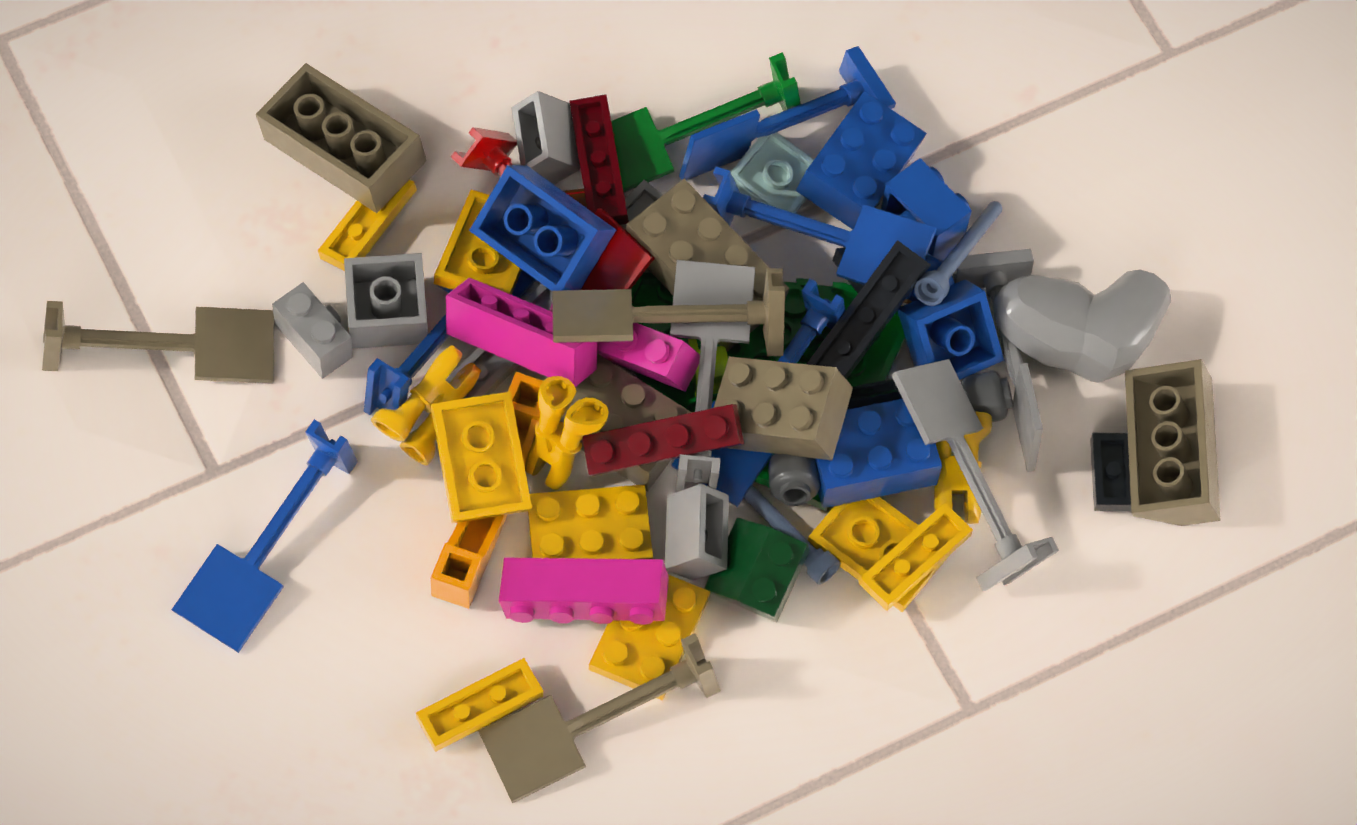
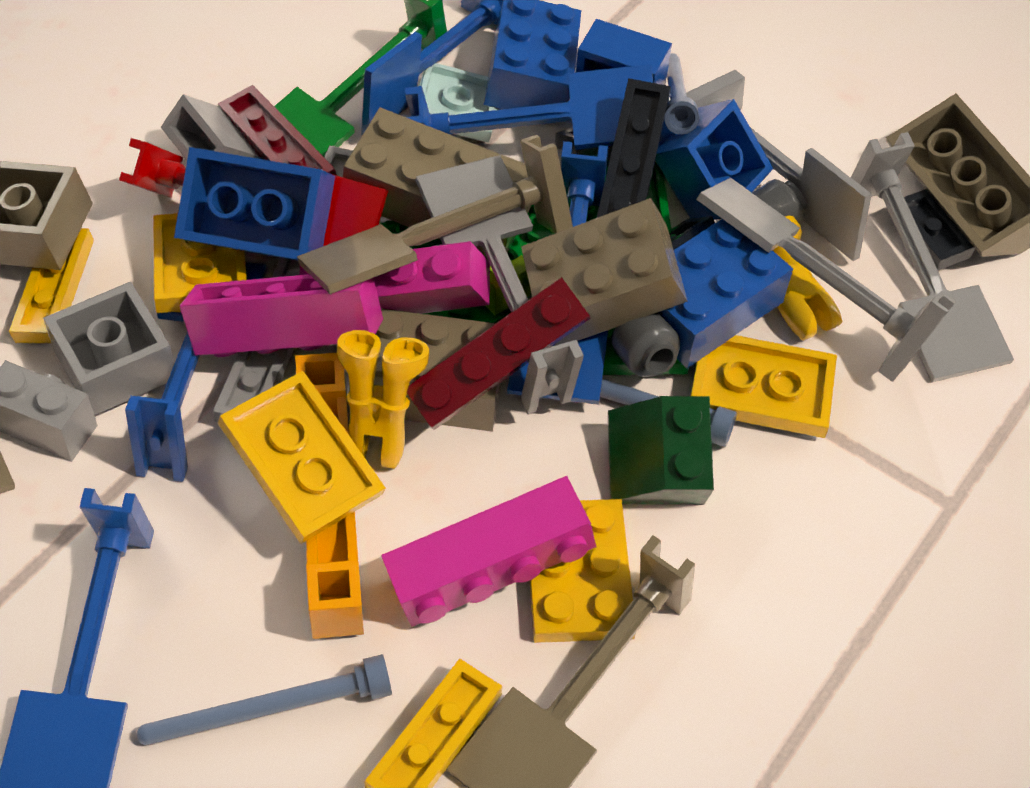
camera: 25 degrees left, 10 degrees down
(432, 389) = (186, 462): yellow piece -> none
(455, 643) = (367, 679): none -> sand blue piece
(591, 524) = (451, 484): yellow plate -> none
(696, 532) = (575, 441): light grey brick -> none
(915, 556) = (813, 372): yellow plate -> none
(1080, 330) = (829, 115): light grey piece -> none
(1080, 571) = (968, 334): none -> light grey piece

